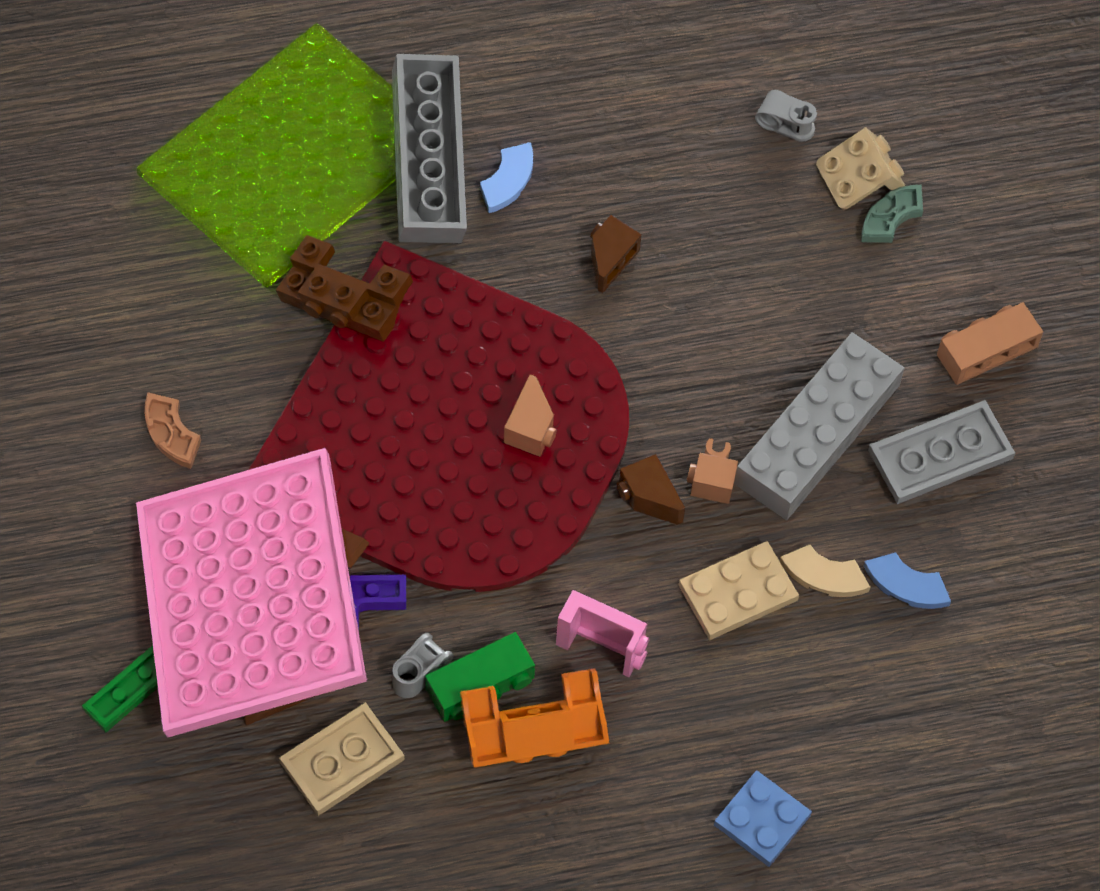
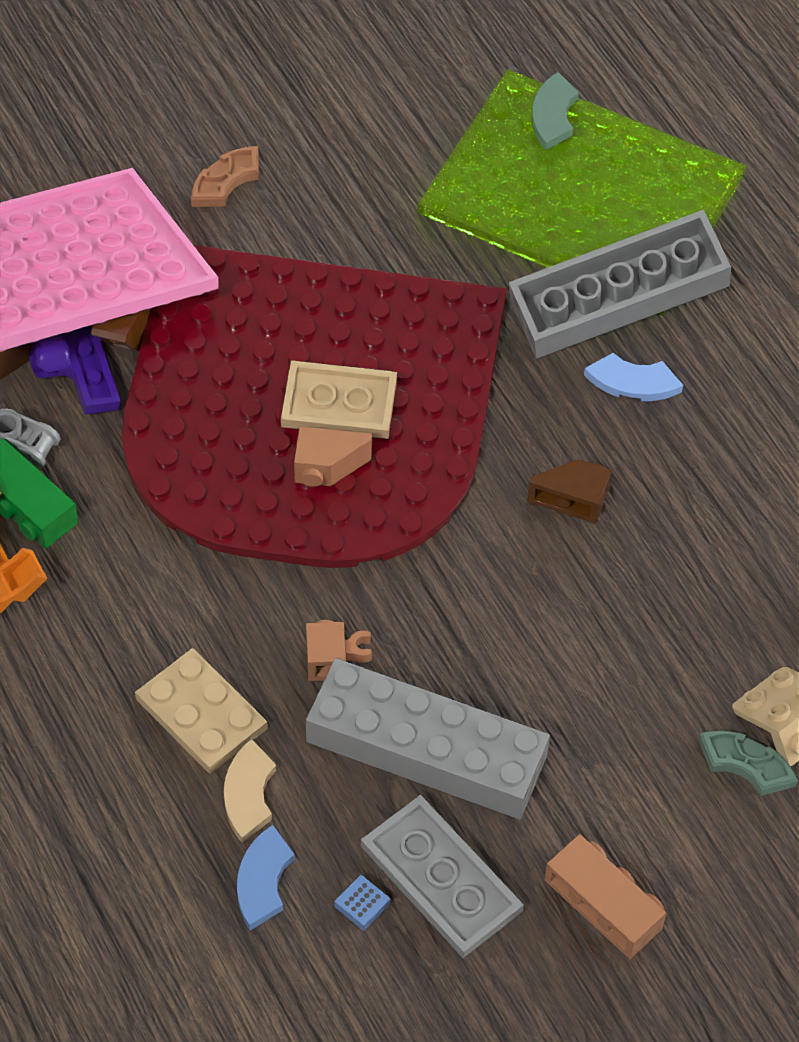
camera: 75 degrees right, 5 degrees down
(207, 144) = (551, 110): none -> sand green tile
(340, 297) = (412, 255): reddish brown bracket -> none
(472, 395) = (339, 398): none -> tan plate
(603, 626) = (91, 612): bright pink panel -> none
(650, 490) = (292, 594): reddish brown slope -> none
(948, 516) = (362, 902): none -> medium blue tile

